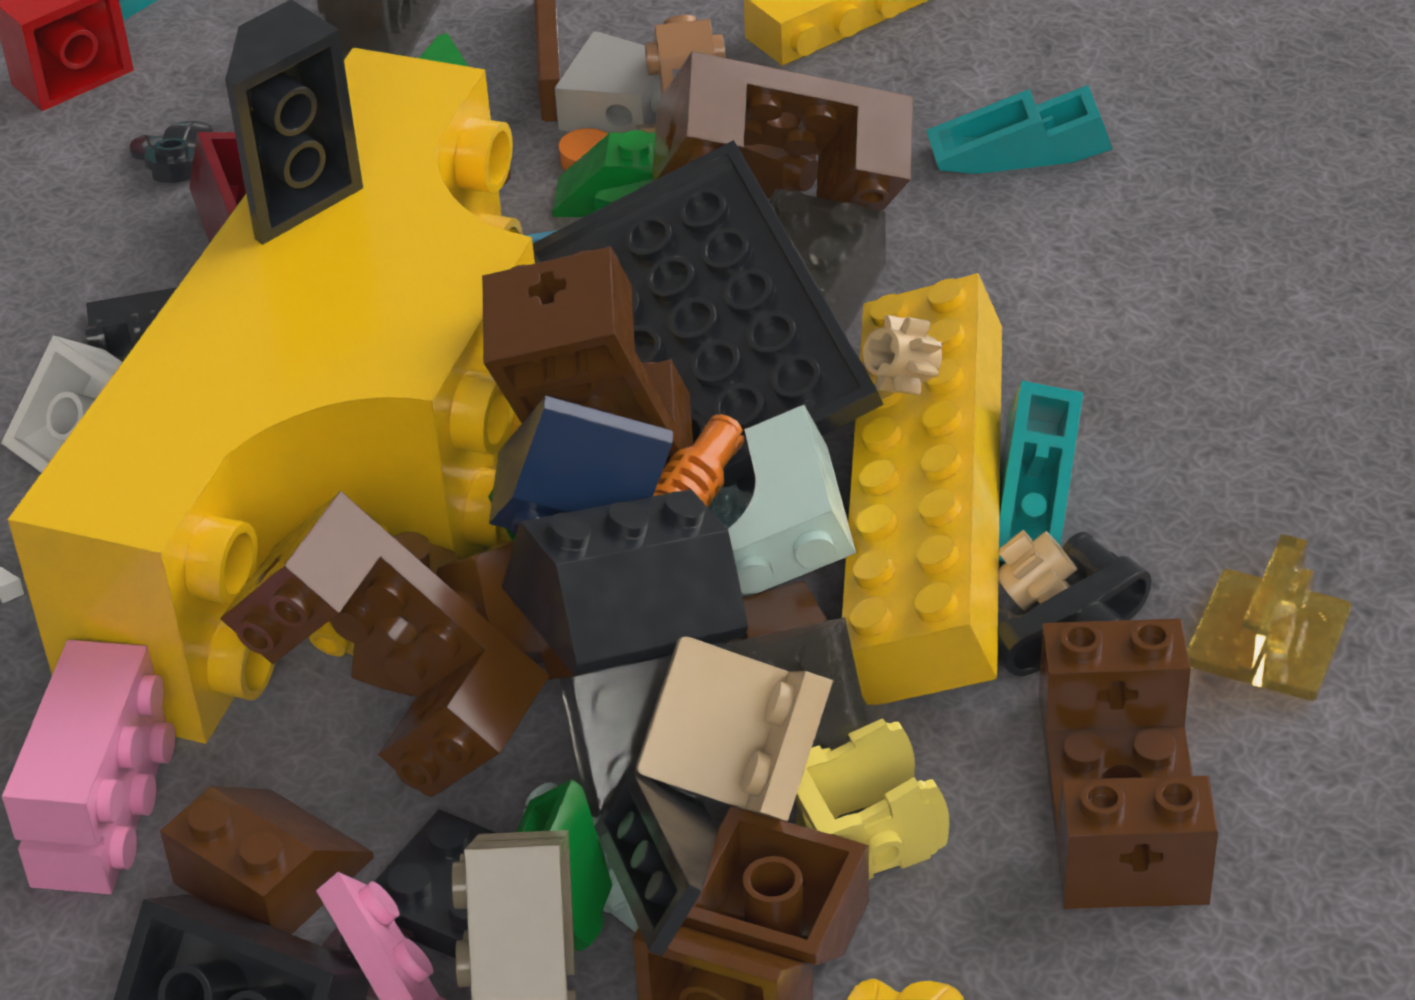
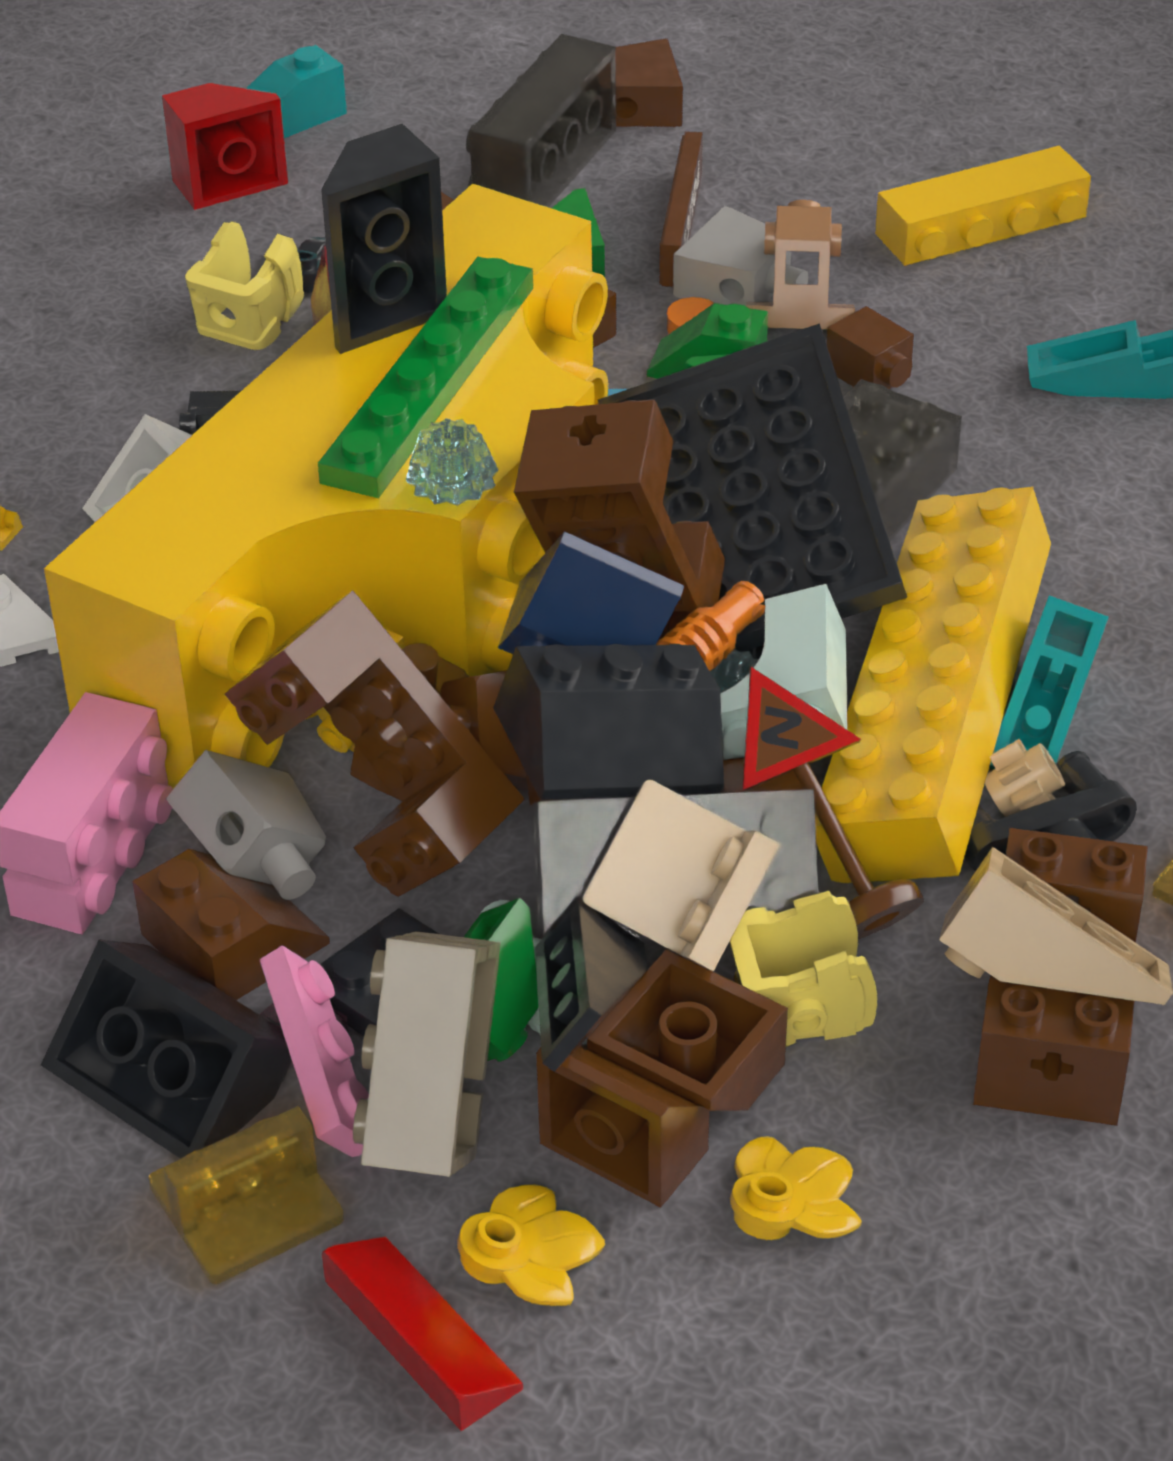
camera: 10 degrees right, 0 degrees up
(136, 204) = (257, 304): none -> light yellow piece
(267, 746) = (250, 821): none -> light grey torso
(358, 258) = (425, 377): none -> green plate
(411, 343) = (451, 463): none -> clear light blue piece
(803, 568) = (787, 737): none -> reddish brown piece
(852, 128) = (945, 330): reddish brown plate -> none
(902, 355) = (934, 551): tan gear -> none
(1100, 731) = (1041, 938): none -> tan slope

